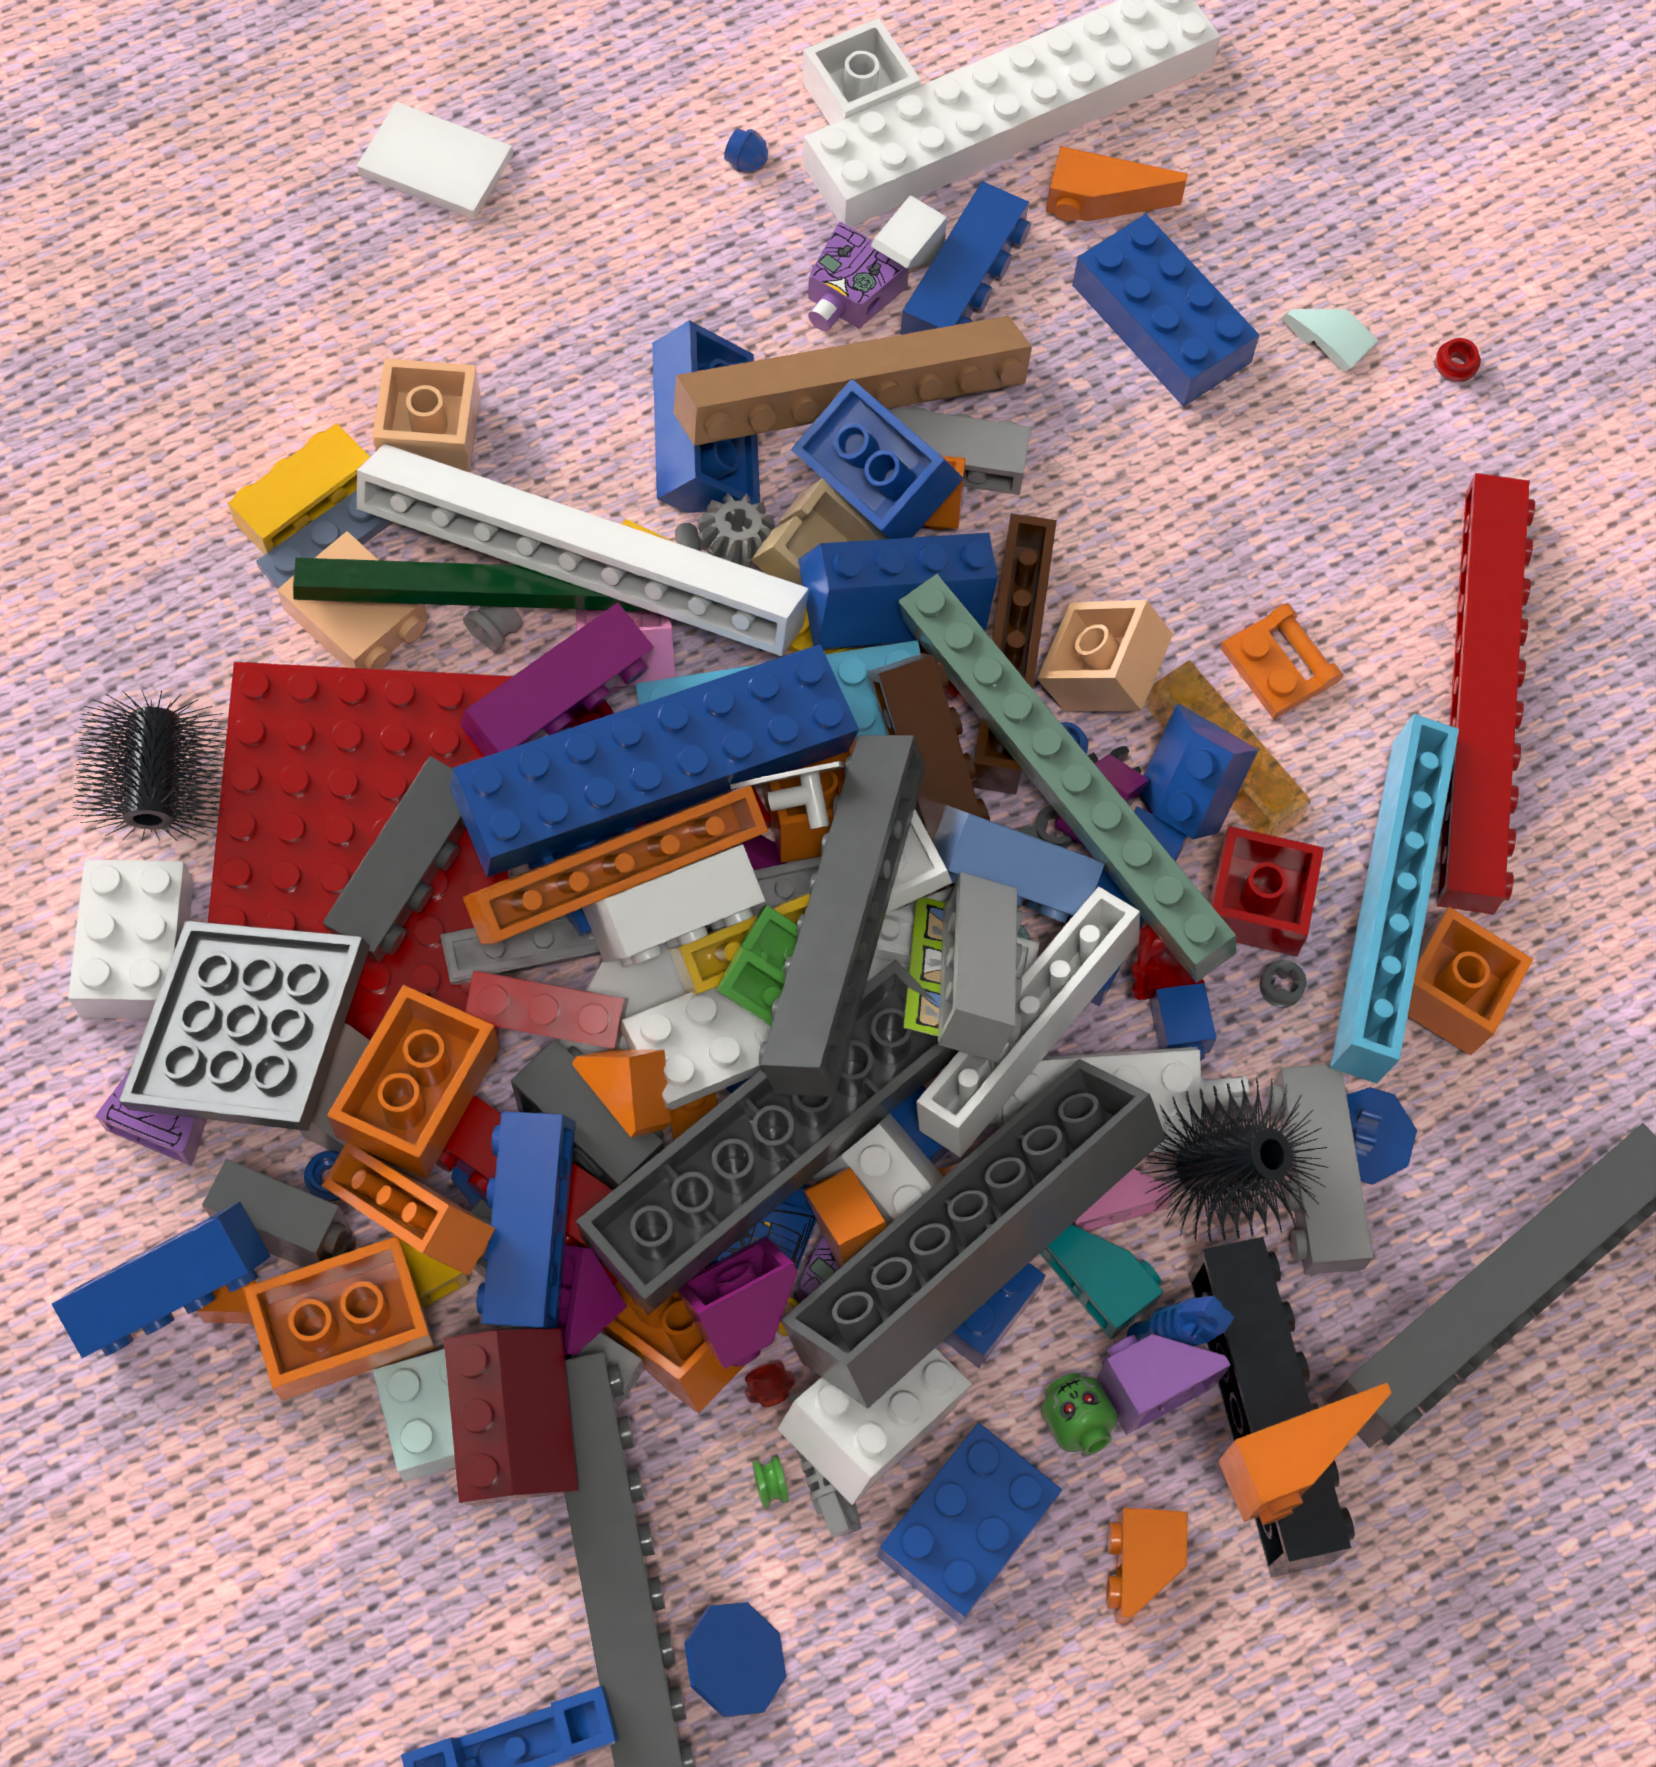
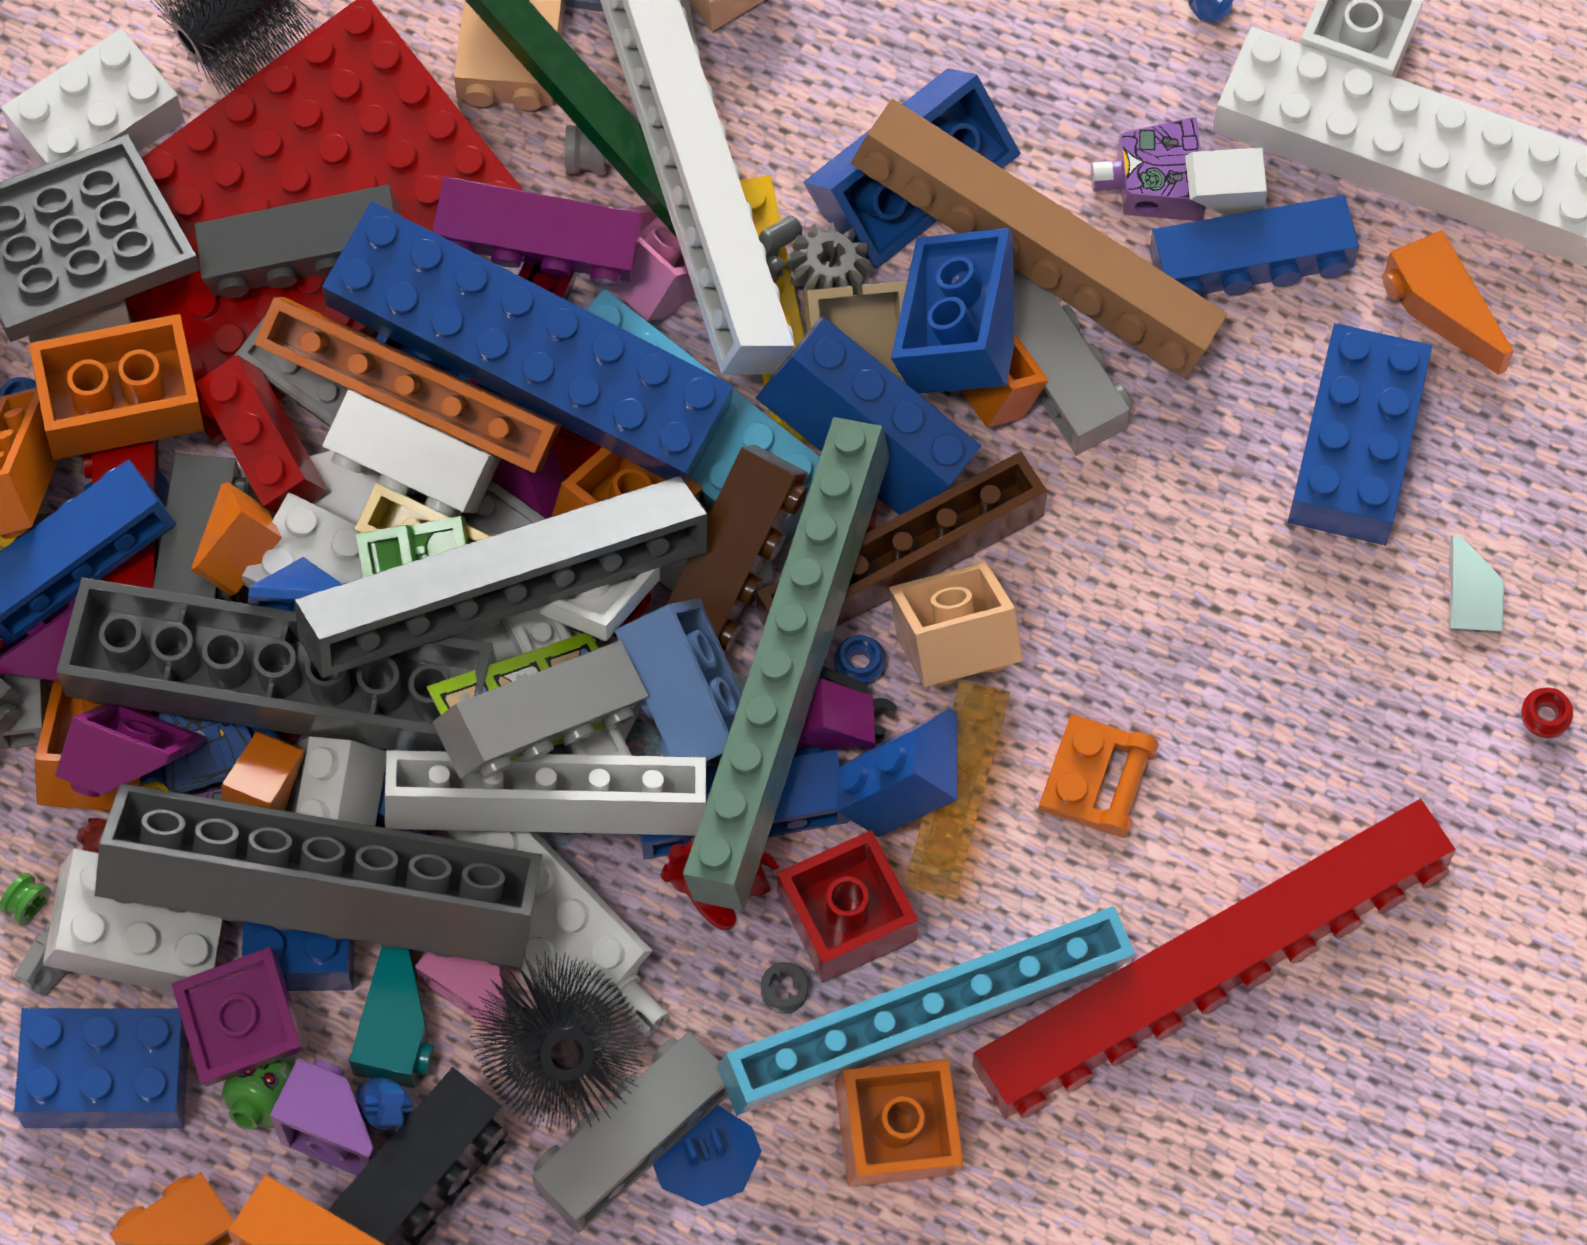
camera: 55 degrees right, 0 degrees up
(724, 1065) = (290, 583): none -> blue slope
(808, 794) = (599, 479): white shield -> none
(1025, 1382) = (238, 1016): none -> magenta plate
(1183, 1018) = (676, 929): blue brick -> none

